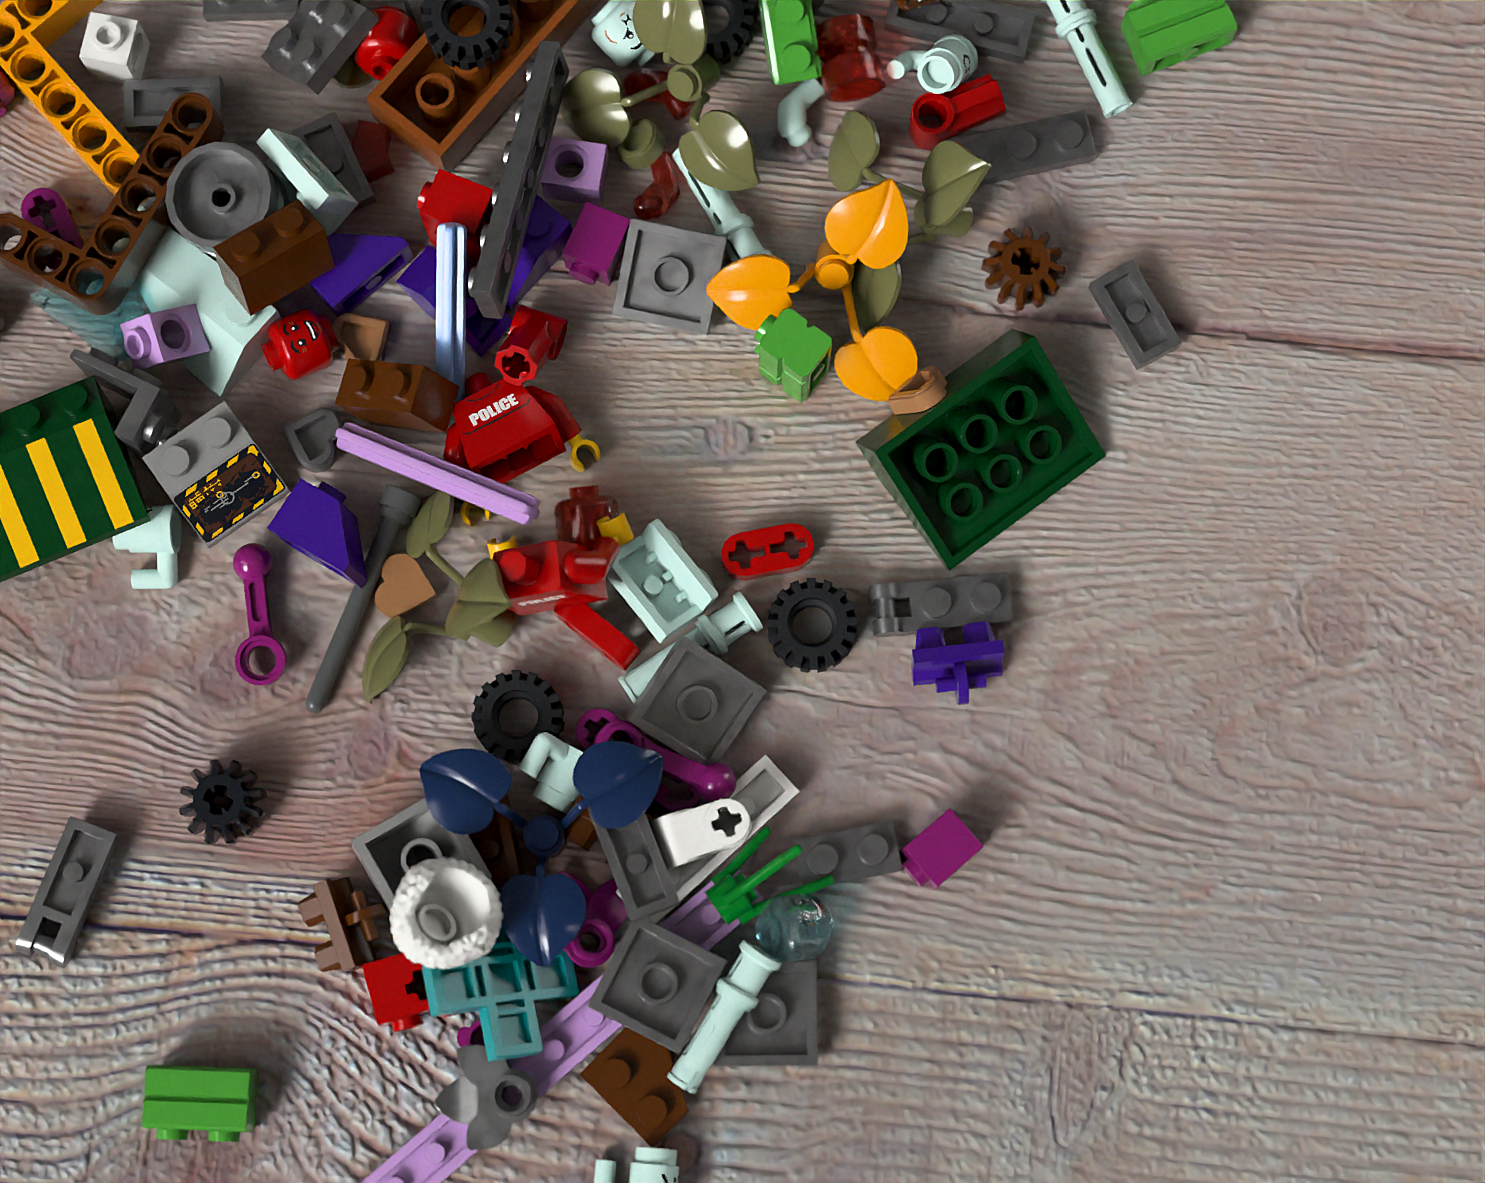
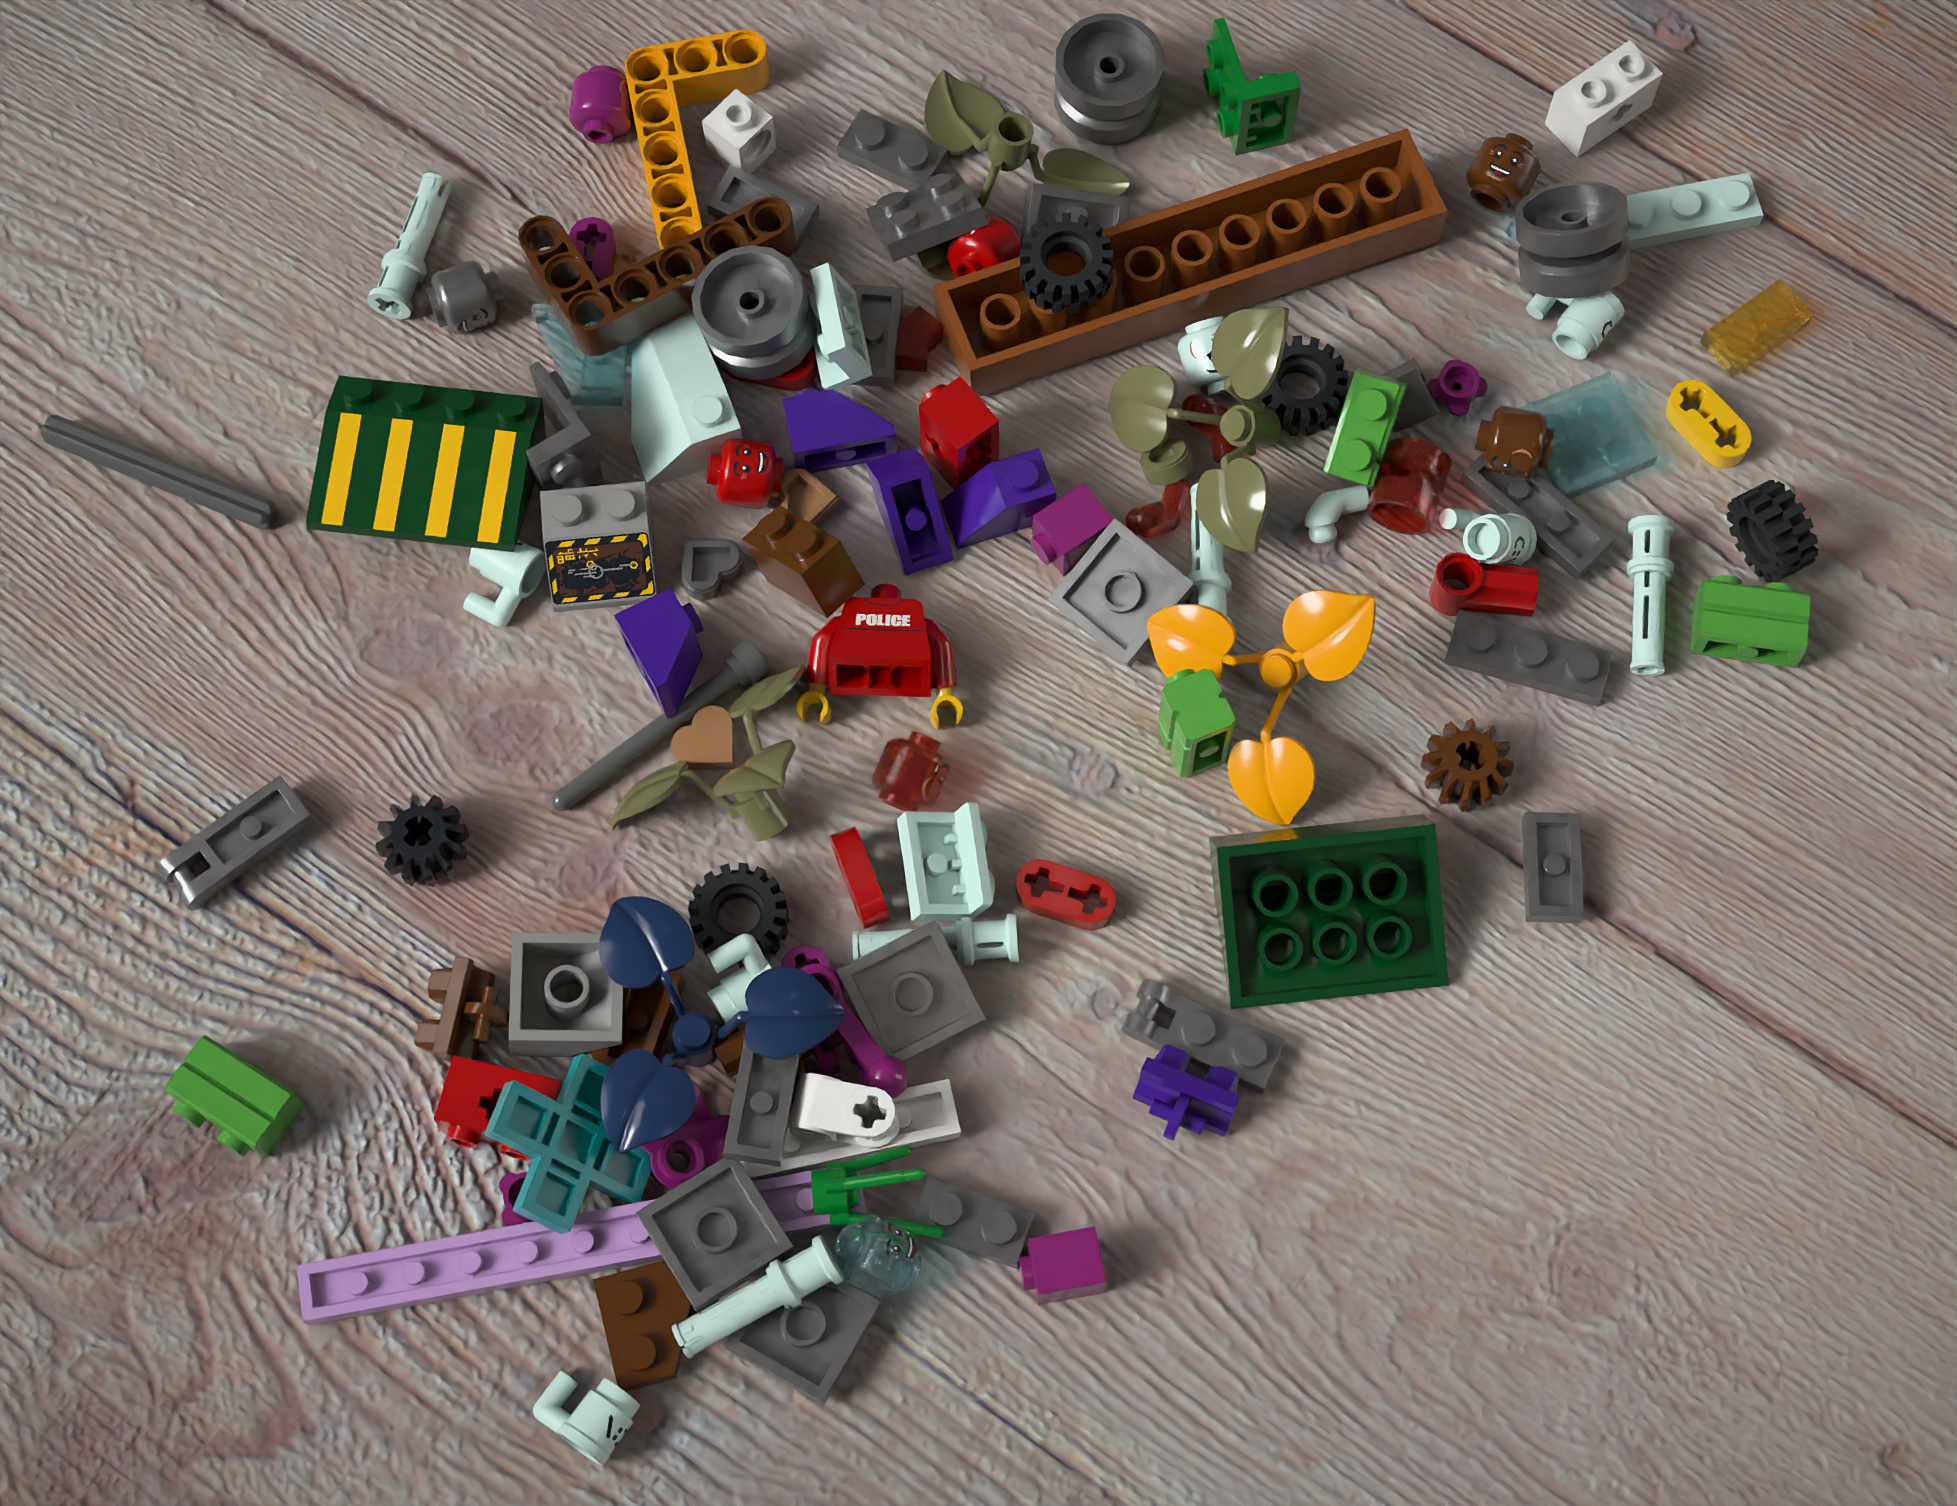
camera: 30 degrees right, 10 degrees down
(164, 337) = (643, 399): lavender brick -> none
(252, 565) = (582, 645): magenta piece -> none
(274, 257) = (764, 376): reddish brown brick -> none
(438, 473) = (797, 650): lavender axle -> none
(445, 913) = (553, 1041): white hair -> none
(451, 303) = (900, 505): light blue axle -> none
(480, 1101) = (485, 1244): flat silver plate -> none
(516, 192) = (1028, 427): flat silver plate -> none
(530, 342) = (955, 581): red piece -> none
(558, 571) = (850, 796): red torso -> none
(588, 184) = (1095, 471): lavender brick -> none
(819, 596) = (1066, 953): black tyre -> none
(919, 392) = (1295, 820): medium nougat tile -> none
(944, 209) = (1410, 667): olive plant -> none

